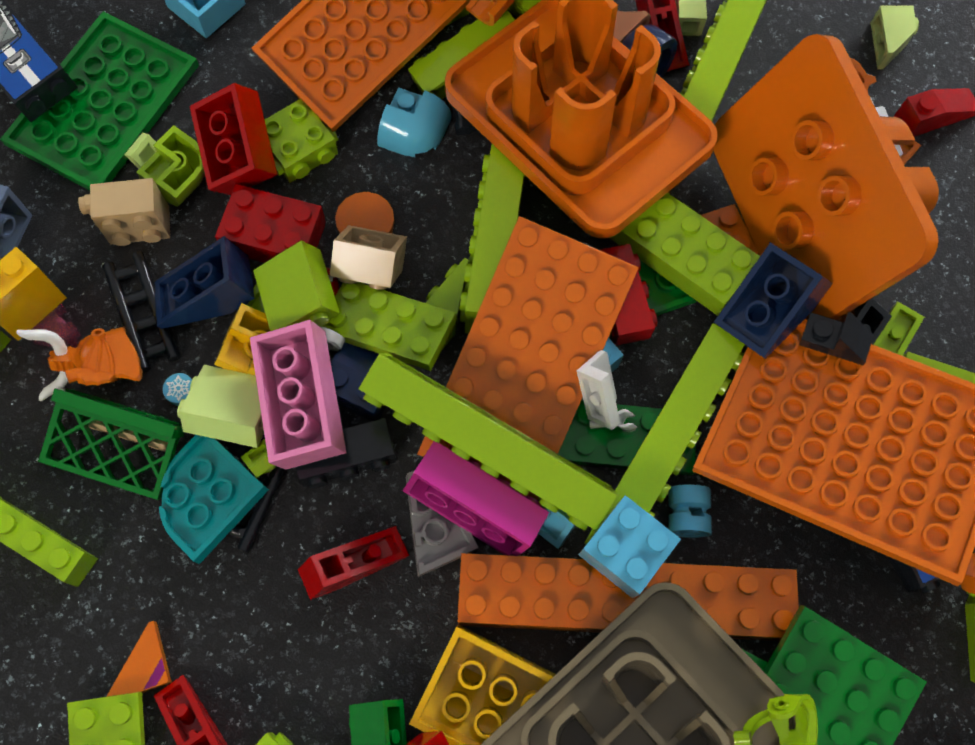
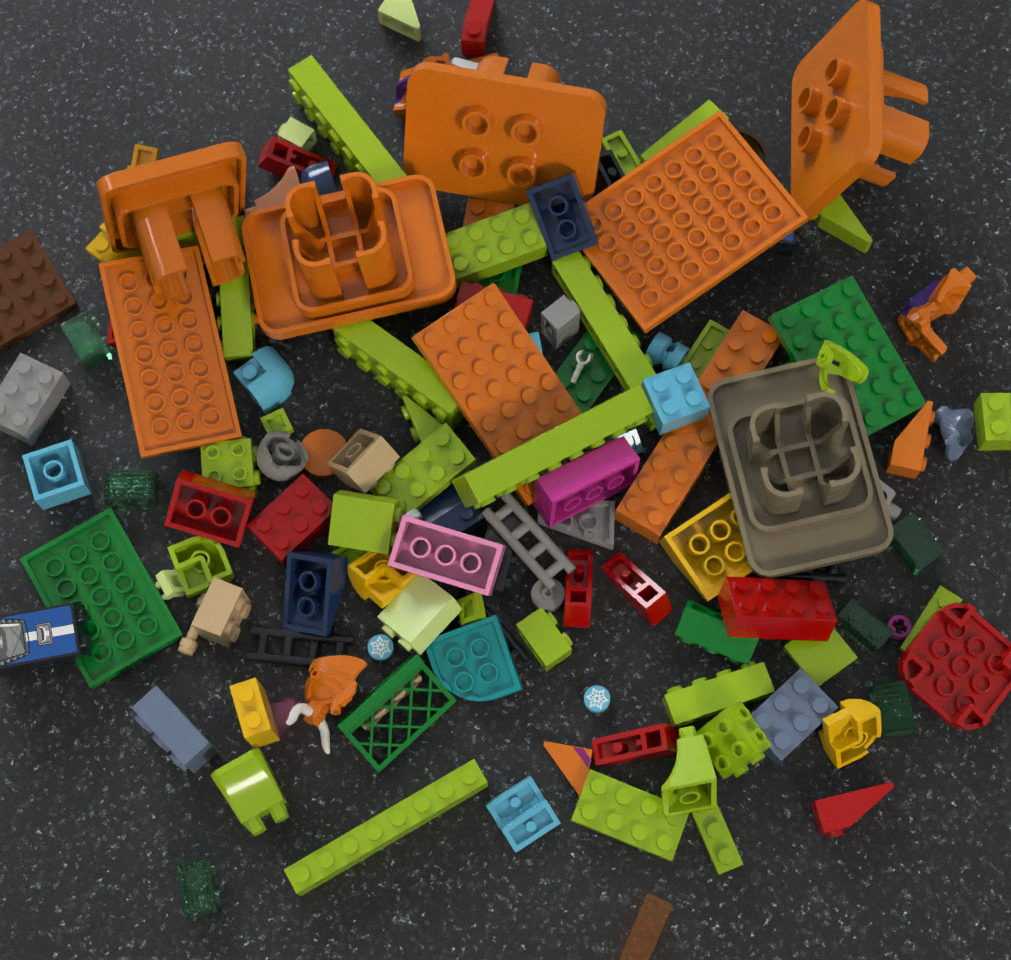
camera: 55 degrees left, 0 degrees up
(58, 642) = (522, 814): none -> medium azure slope
(224, 63) = (131, 488): none -> clear green brick
(233, 654) = (596, 699): none -> medium azure tile
(272, 556) = (544, 638): none -> lime brick
(326, 531) = (547, 599): none -> light grey wheel
(332, 177) = (280, 456): none -> light grey cylinder
(353, 486) = (544, 543): none -> light grey bar
(369, 159) = (277, 422): none -> lime plate
(386, 630) = (638, 588): none -> red slope
(599, 390) = (559, 360): white panel -> none
(652, 372) = (560, 321): none -> light grey brick
(718, 551) = (705, 347): none -> lime plate
(840, 339) = (612, 191): black slope -> none

